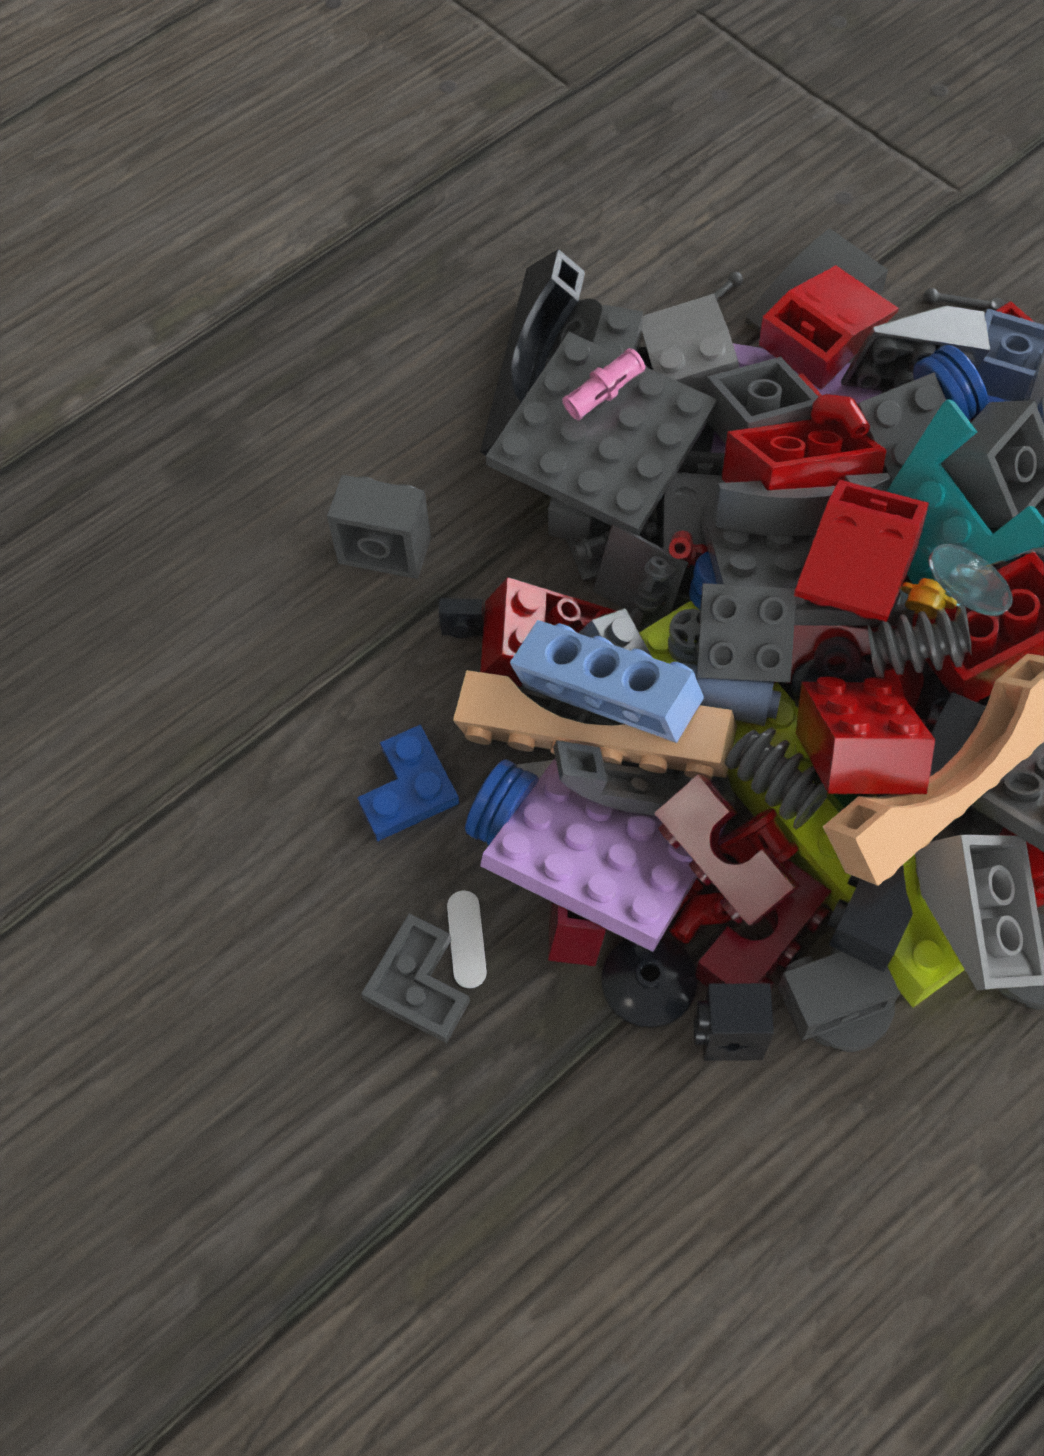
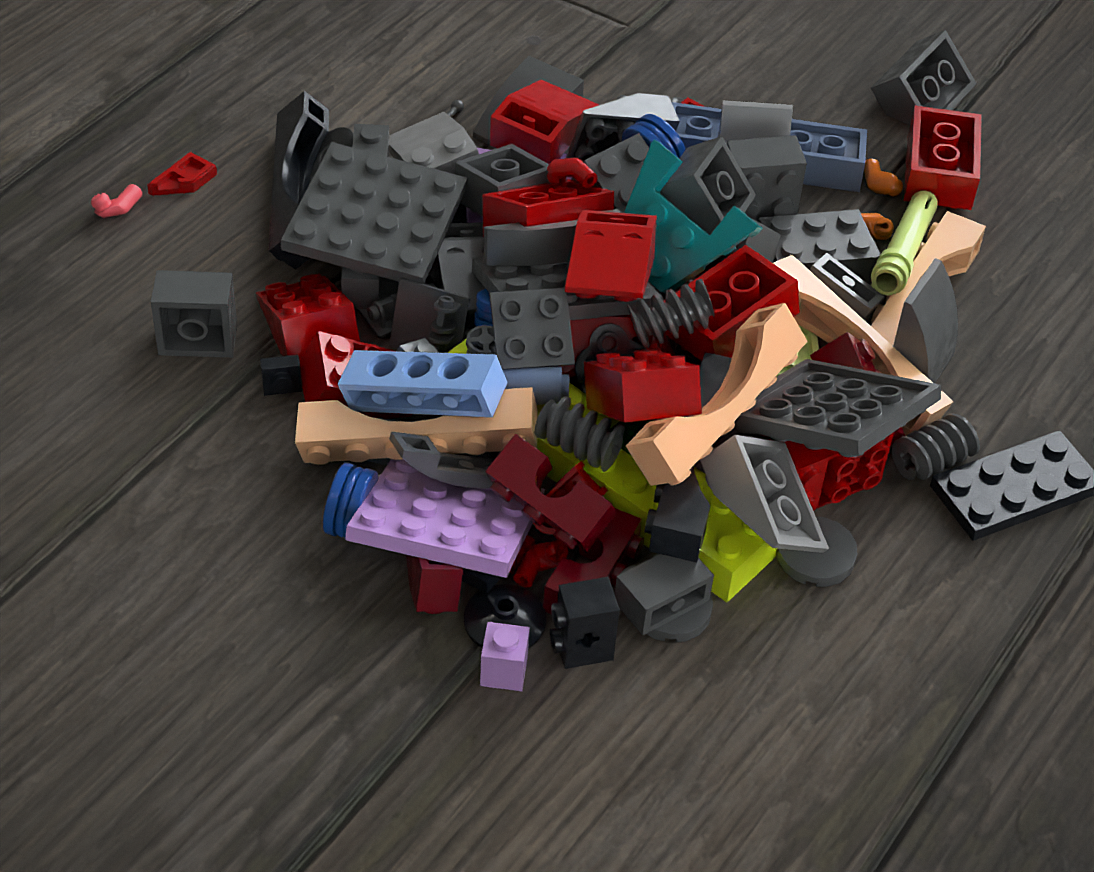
camera: 20 degrees left, 15 degrees down
(334, 364) = (119, 206): none -> coral arm
(405, 985) = (298, 652): dark grey plate -> none
(411, 334) = (183, 176): none -> red tile
(419, 787) = (269, 509): blue plate -> none
(466, 939) = (340, 614): white sticker -> none
(508, 538) = (303, 309): none -> red slope
(603, 384) = (371, 172): bright pink pin -> none
(634, 1041) = (504, 656): none -> lavender brick
(682, 547) = (462, 285): red arm -> none
(927, 597) = (669, 279): light orange plate -> none
(970, 580) = (700, 265): clear light blue dish -> none

